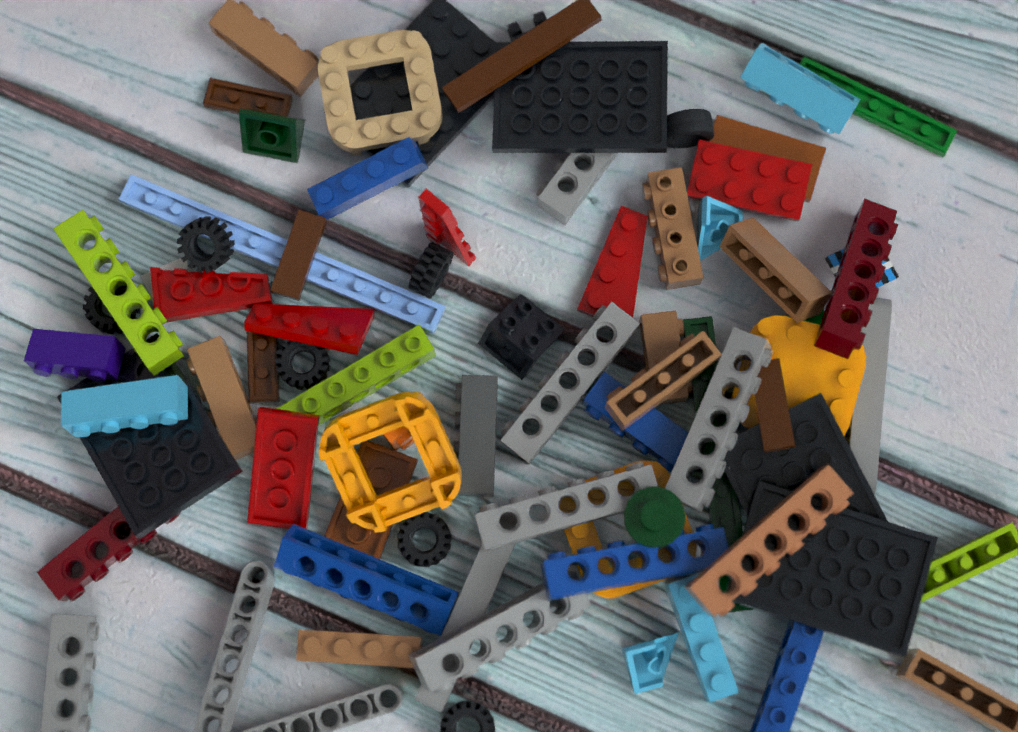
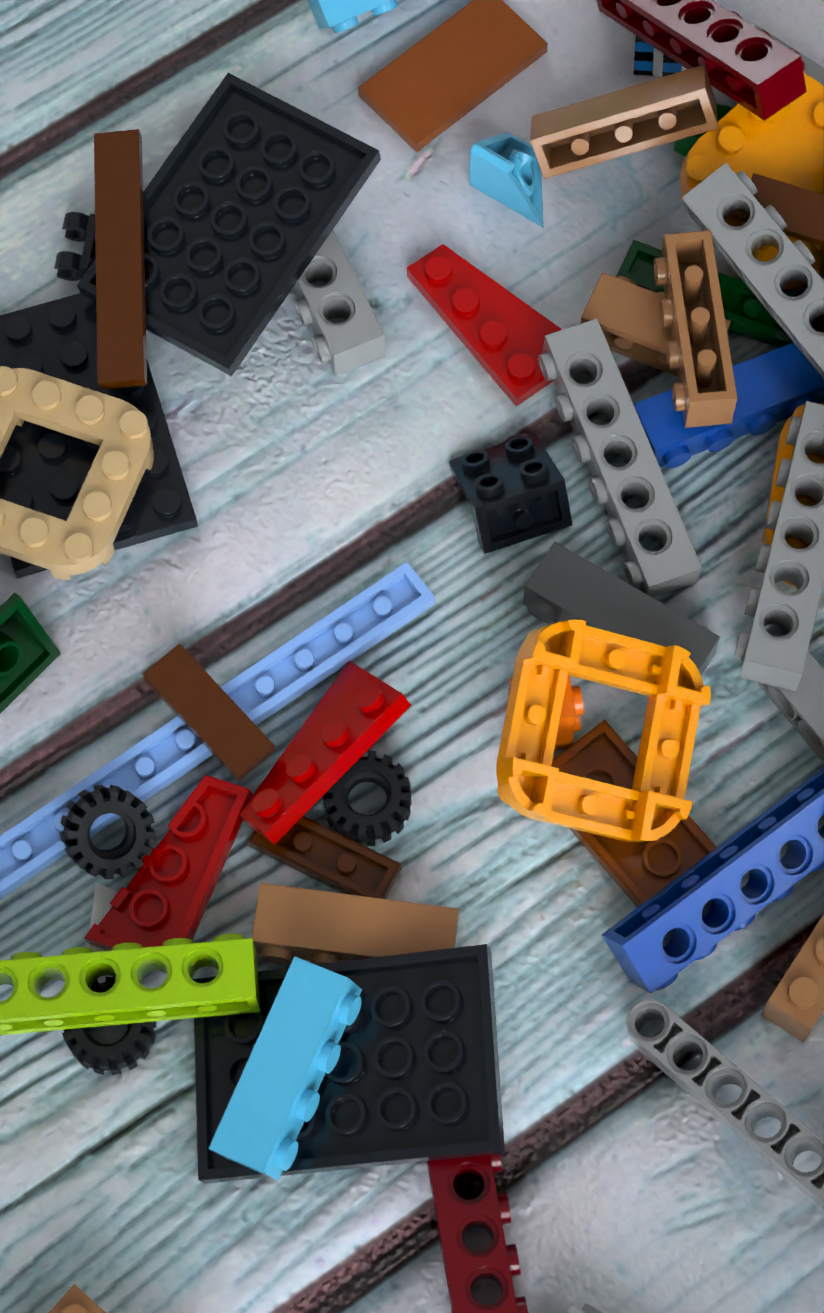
camera: 60 degrees left, 10 degrees down
(74, 355) = (153, 1113): dark purple brick -> none
(282, 468) = (514, 900): red tile -> none
(364, 376) = (444, 748): lime brick -> none
(367, 178) = (159, 556): blue brick -> none
(429, 557) = (747, 752): black tyre -> none
(430, 270) = (346, 547): black tyre -> none
(442, 226) = (303, 483): red wing -> none
(673, 228) = (482, 221): medium nougat brick -> none
(688, 127) = (362, 113): black tyre -> none
(749, 180) = (475, 96): red plate -> none

